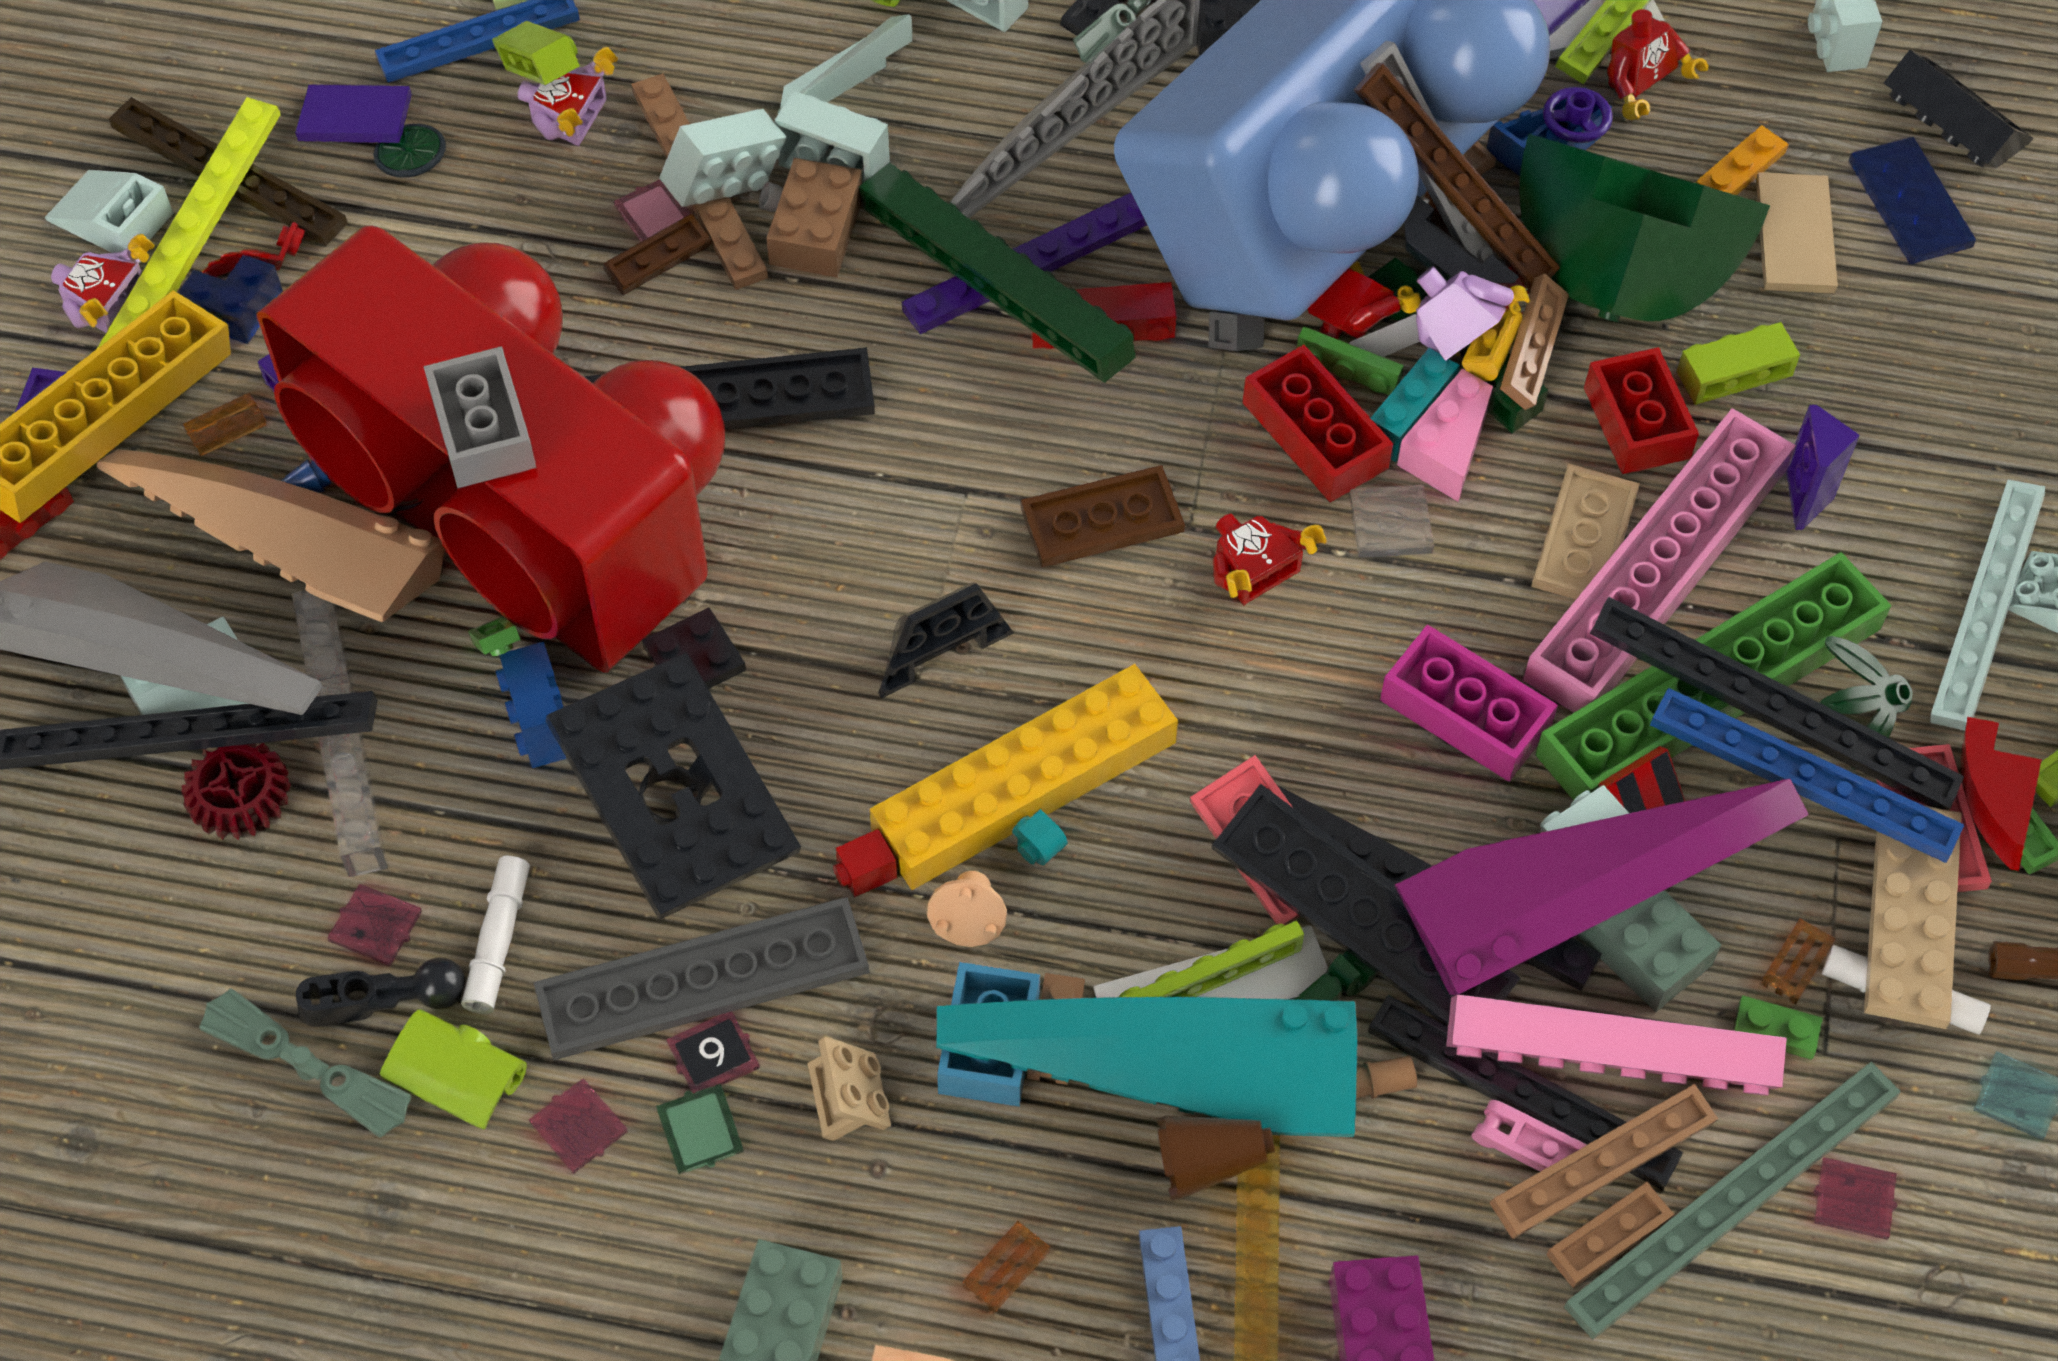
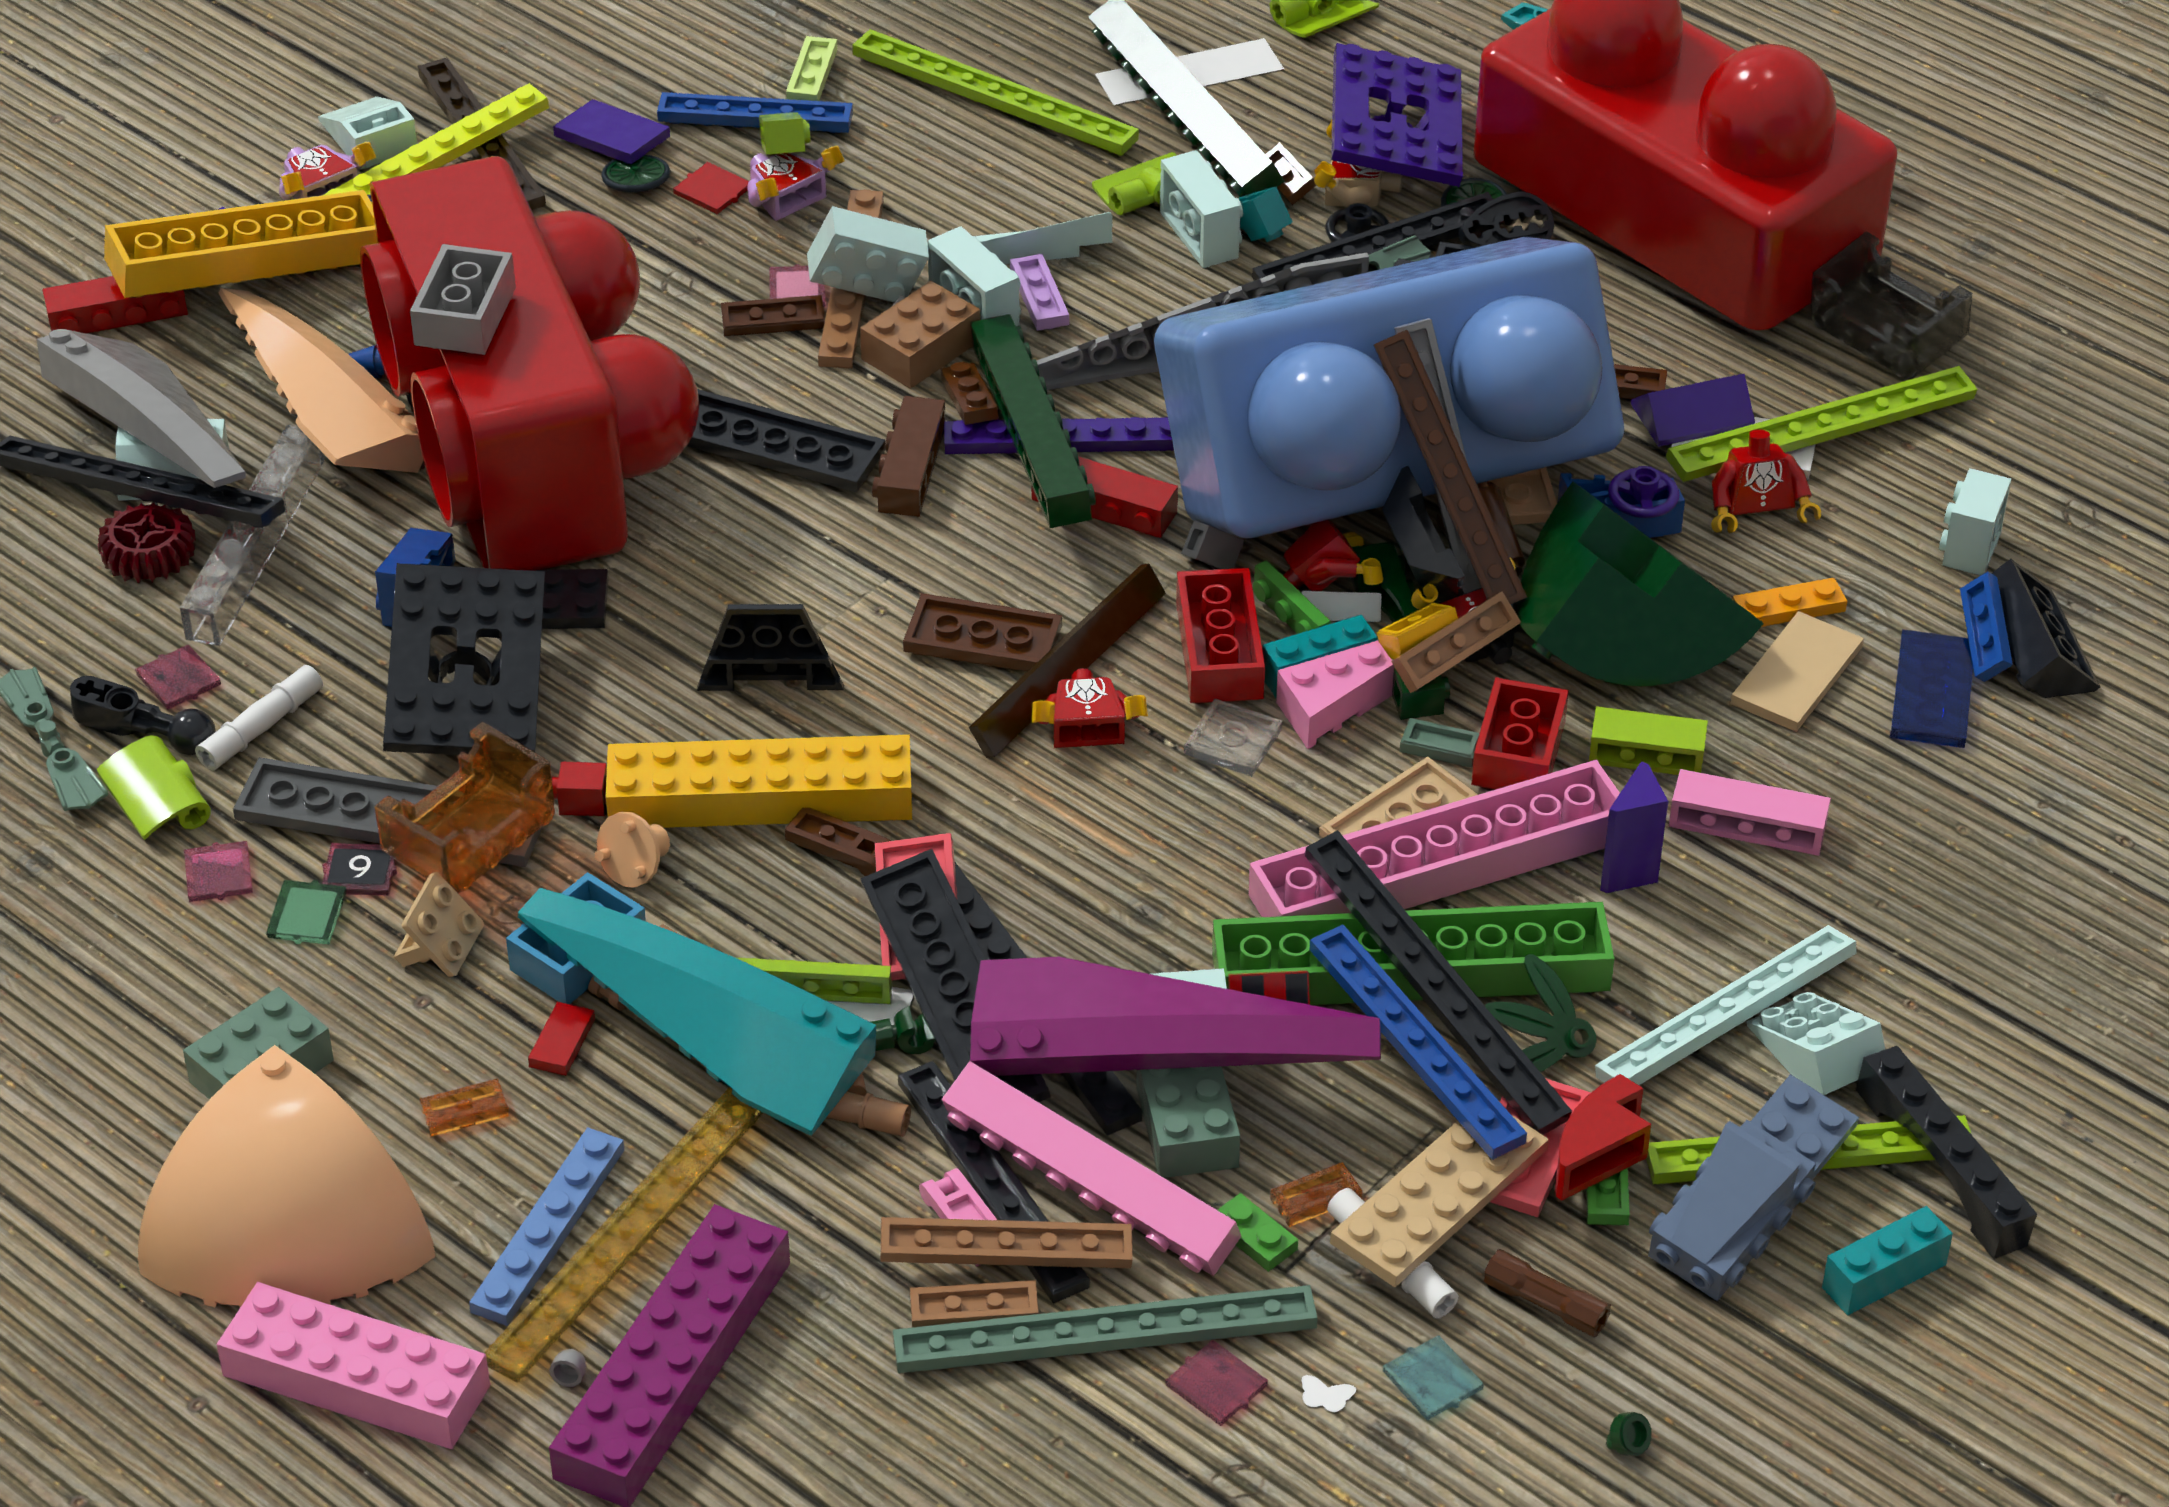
camera: 30 degrees right, 15 degrees down
(227, 428) = (336, 305): clear orange tile -> none
(493, 135) = (711, 188): none -> red piece
(495, 636) = (418, 516): bright green plate -> none
(804, 951) = (473, 815): none -> clear orange windscreen
(900, 354) = (909, 456): none -> reddish brown brick
(905, 136) = (1040, 292): none -> lavender plate
(905, 262) = (969, 393): none -> reddish brown plate
(1039, 838) = (735, 829): teal plate -> none
(1041, 1144) = (561, 1038): none -> red tile
(1137, 801) = (834, 839): none -> reddish brown plate
(1199, 512) = (1073, 652): none -> dark brown tile
(1210, 1150) = (675, 1086): reddish brown cone -> none
(1461, 309) = (1398, 584): lavender torso -> none
(1468, 702) = (1173, 879): dark pink brick -> none
(1565, 442) = (1439, 742): none -> sand green tile
(1872, 392) = (1749, 812): none -> bright pink brick
(1923, 122) = (1986, 626): none -> blue plate
(1942, 1163) = (1332, 1397): none -> white sticker

